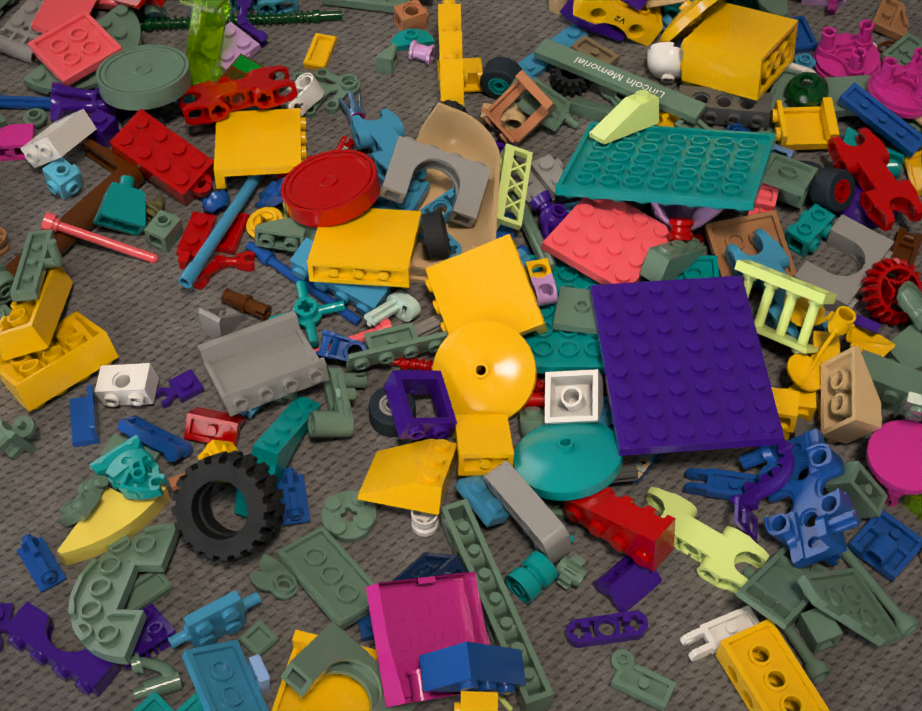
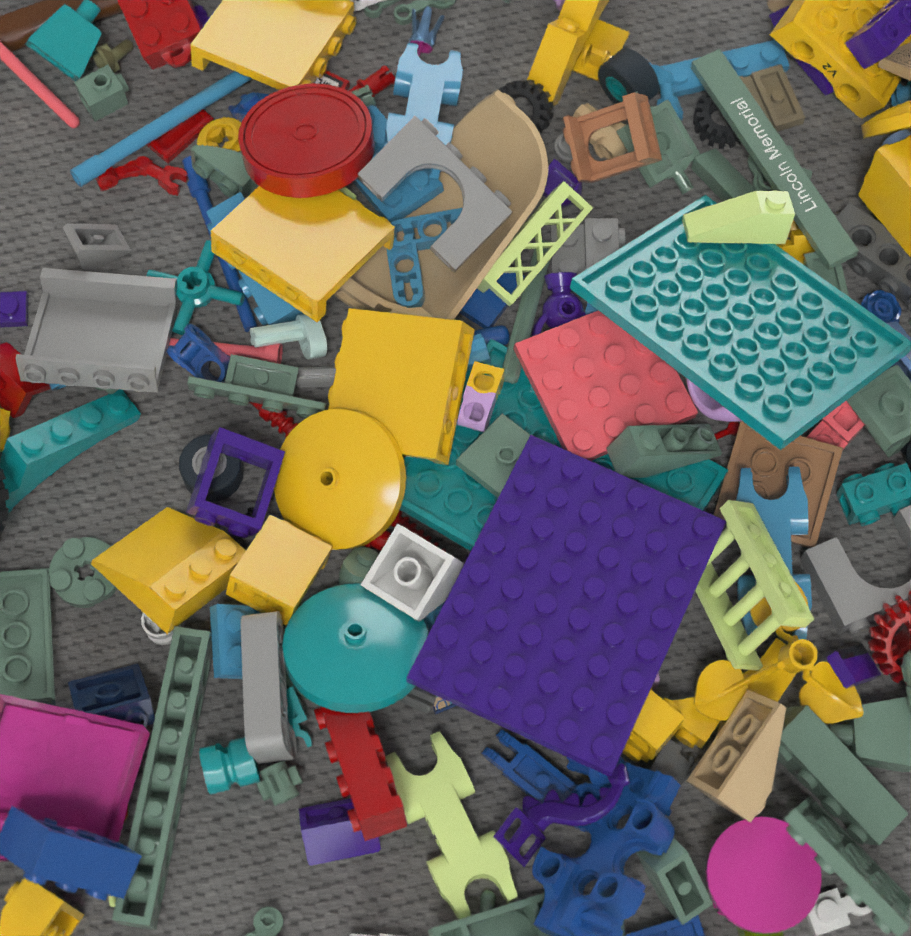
camera: 30 degrees right, 15 degrees up
(194, 236) = (134, 115): red hinge -> none
(216, 202) = (184, 83): blue plate -> none
(246, 304) = (136, 238): reddish brown pin -> none
(294, 498) = (38, 517): blue hinge -> none
(339, 418) = (137, 451): sand green piece -> none
(435, 235) = (391, 268): black tyre -> none
(612, 619) = (255, 854): dark purple beam -> none
(665, 61) = (852, 157): white cylinder -> none
(681, 228) = (698, 414): red wheel -> none

